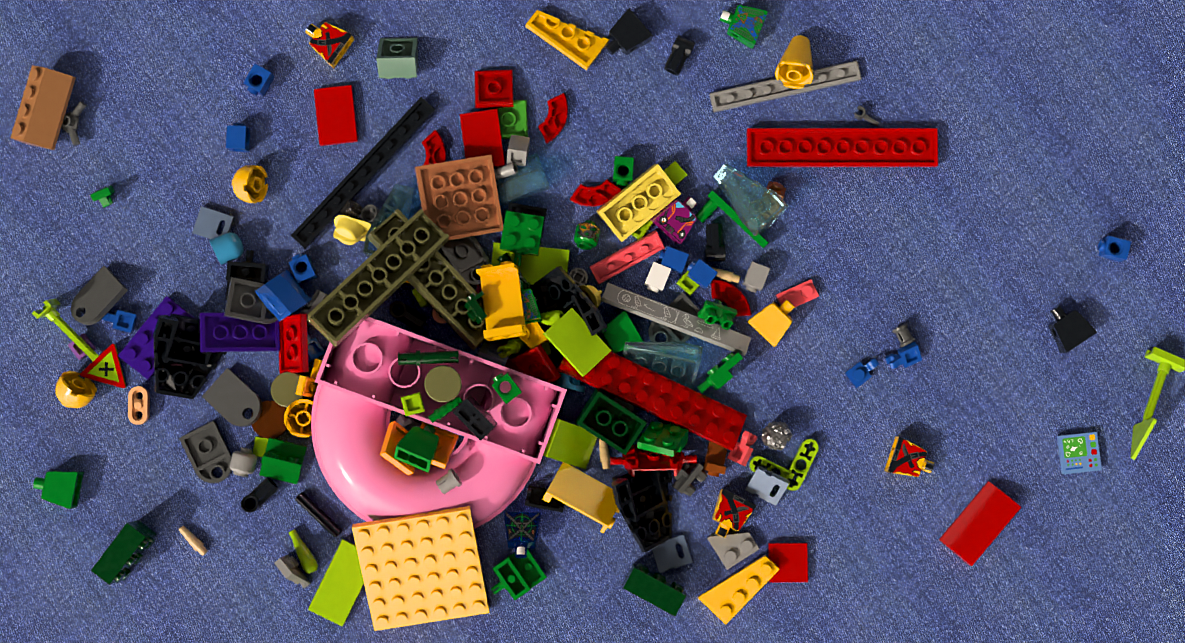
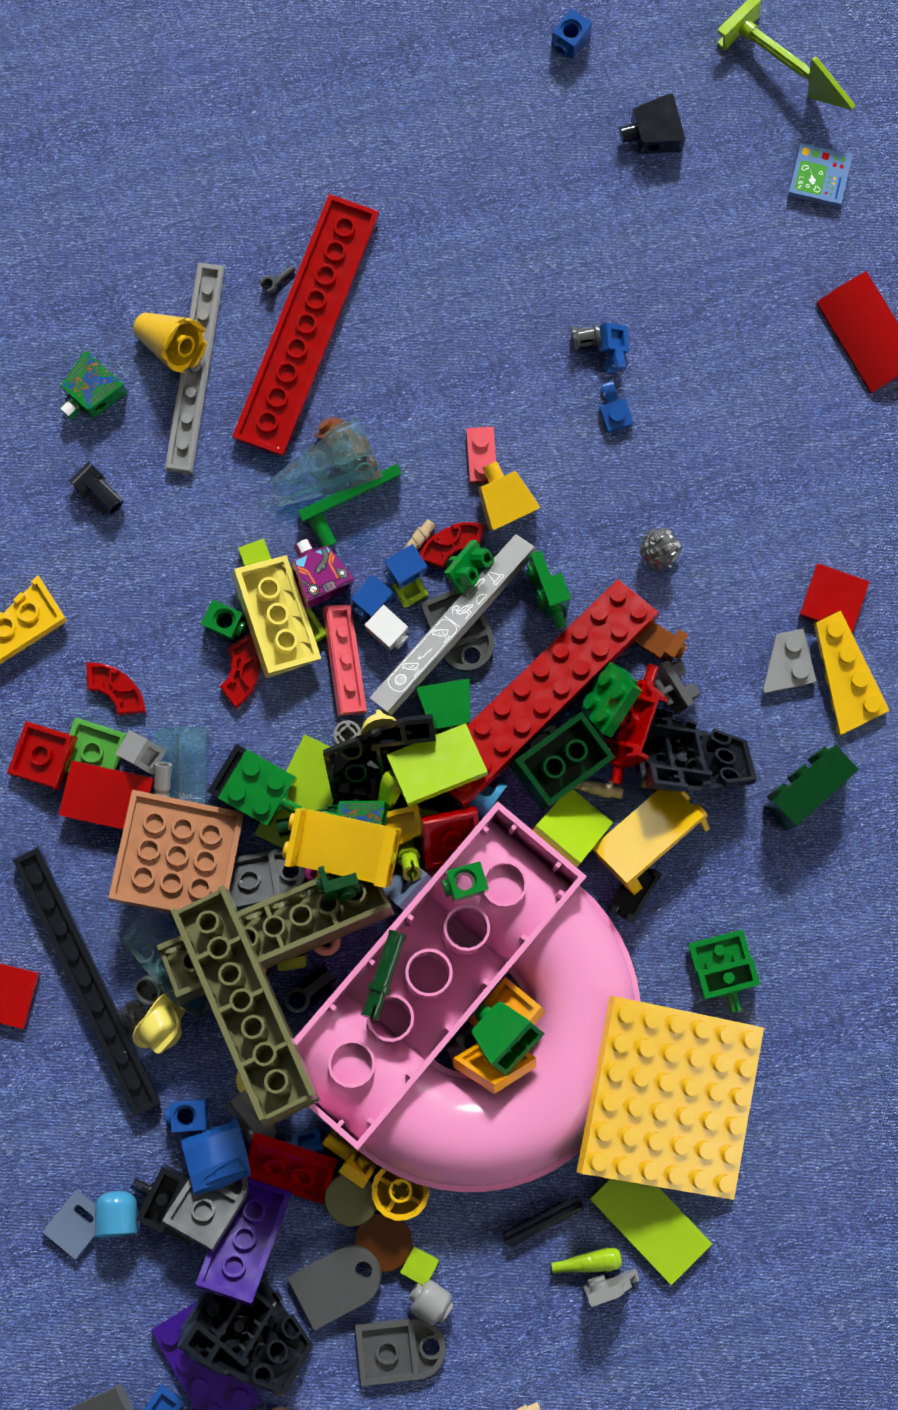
camera: 70 degrees left, 5 degrees down
(250, 183) = (37, 1148): yellow cylinder -> none
(260, 495) = (485, 1294): black piece -> none
(283, 460) = (449, 1244): green bracket -> none
(412, 404) = (440, 1021): lime tile -> none
(434, 149) = (92, 869): red tile -> none
(442, 383) = (427, 967): olive head -> none
(442, 411) = (464, 979): green animal -> none
(448, 481) = (566, 1011): light grey bush -> none
(475, 417) = (491, 939): black hinge -> none
(522, 531) = (667, 940): torso -> none
(587, 235) = (293, 702): head -> none
(628, 34) = (41, 546): black torso -> none
(667, 556) = (769, 755): sand blue piece -> none
(670, 359) = (507, 650): clear light blue wedge -> none
(714, 239) = (377, 538): black piece -> none
(731, 512) = (741, 647): torso -> none
(742, 450) = (663, 601): coral plate -> none
(755, 277) = (436, 498): light grey brick -> none
(763, 483) = (717, 591): piece -> none
(787, 473) = (714, 557): lime beam -> none
(907, 459) = (751, 392): torso -> none

